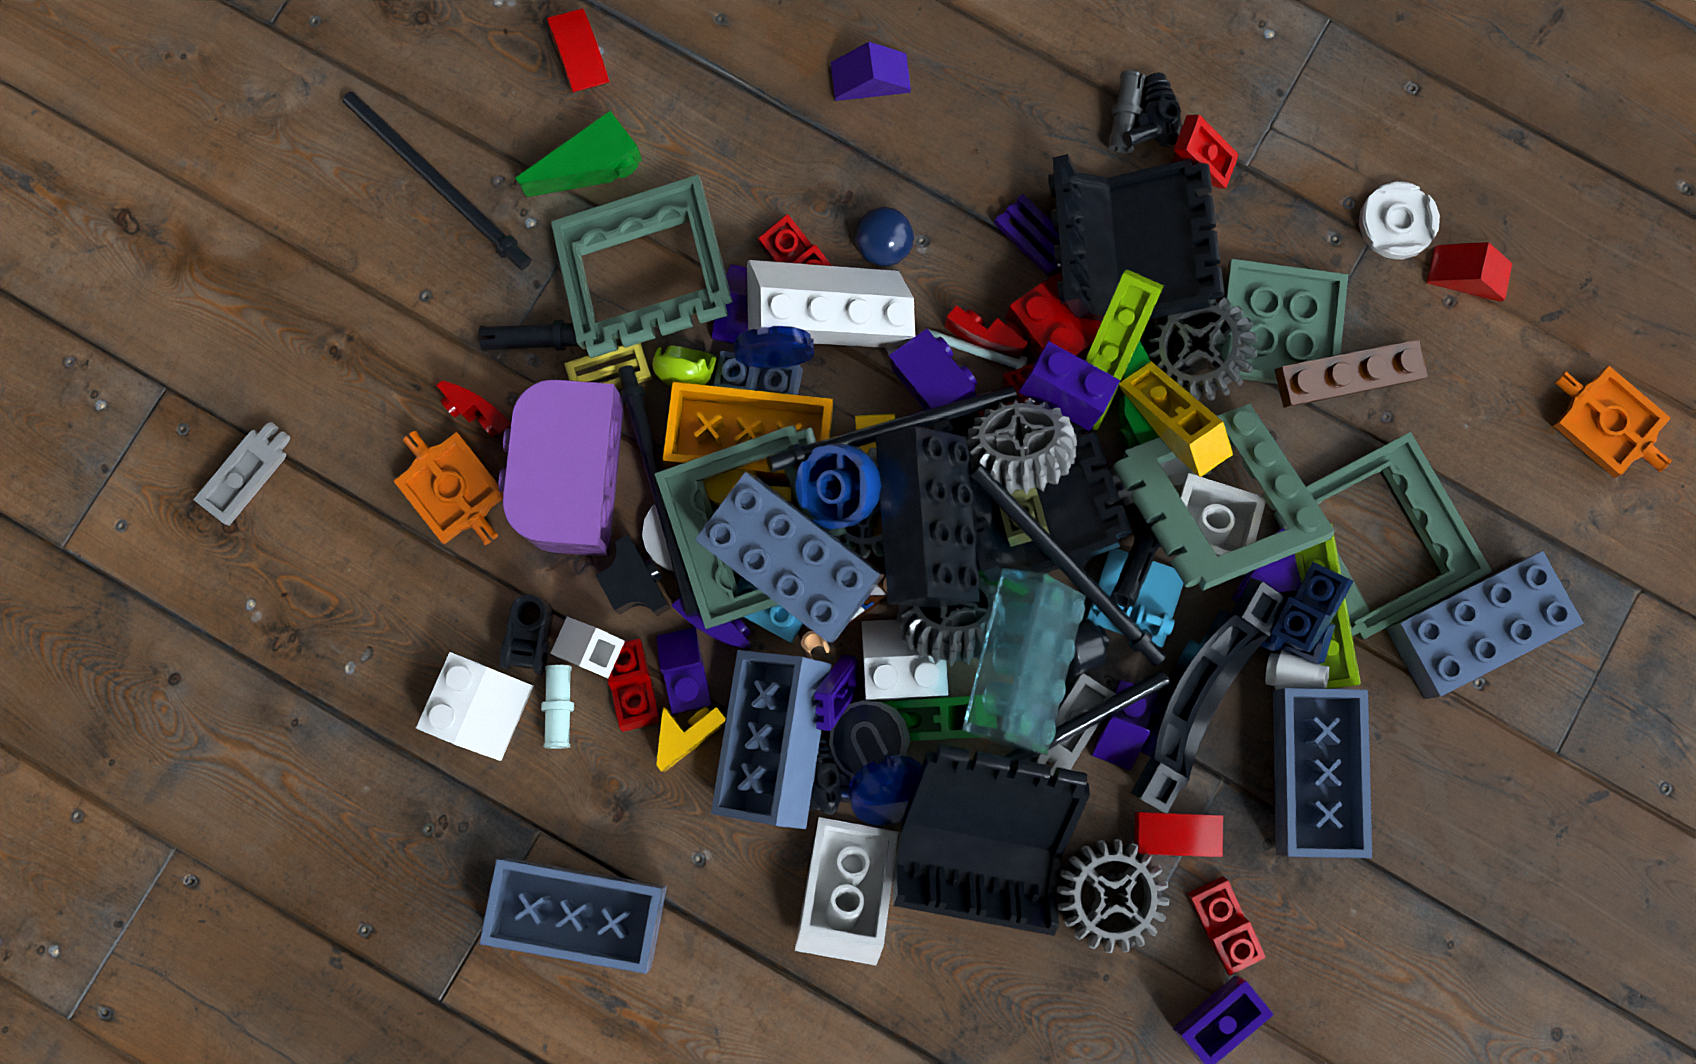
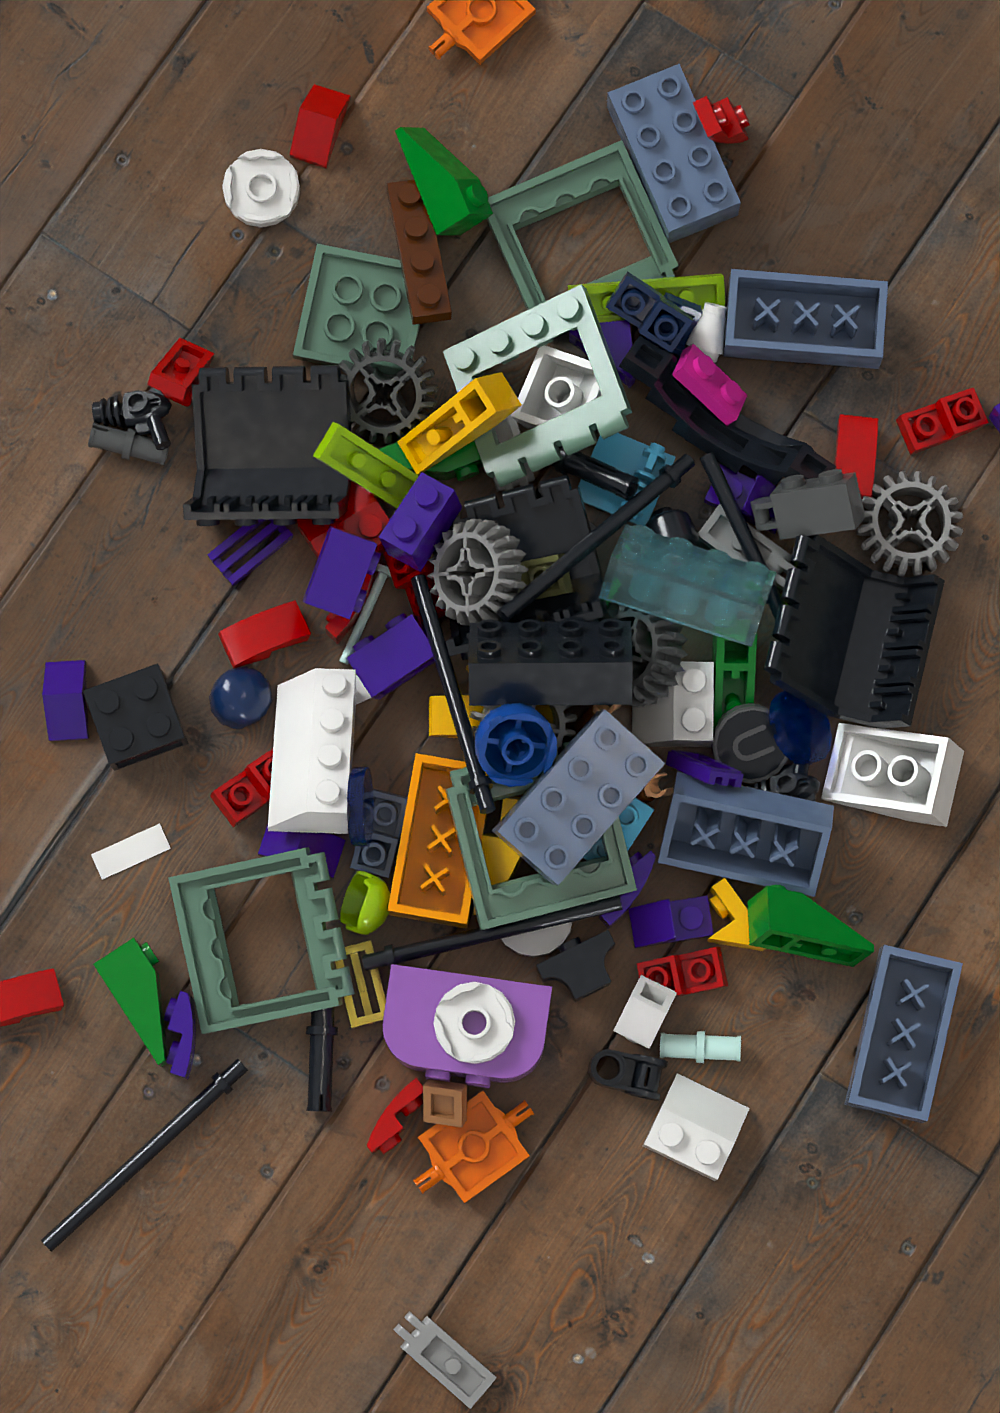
camera: 85 degrees left, 0 degrees up
(485, 453) = (445, 1103): none -> medium nougat plate
(558, 204) = (181, 1021): none -> dark purple slope
(573, 485) = (466, 999): none -> white tile
(679, 799) = (801, 927): none -> green slope
(728, 147) = (130, 851): none -> white sticker
(856, 135) = (135, 717): none -> black piece
(948, 251) = (264, 632): none -> red slope
(1010, 310) = (341, 573): none -> dark purple brick
(1120, 788) = (811, 505): none -> dark grey brick
(1241, 676) = (709, 384): none -> dark pink plate
(1424, 395) = (447, 187): none -> green slope
(1526, 673) = (722, 120): none -> red slope

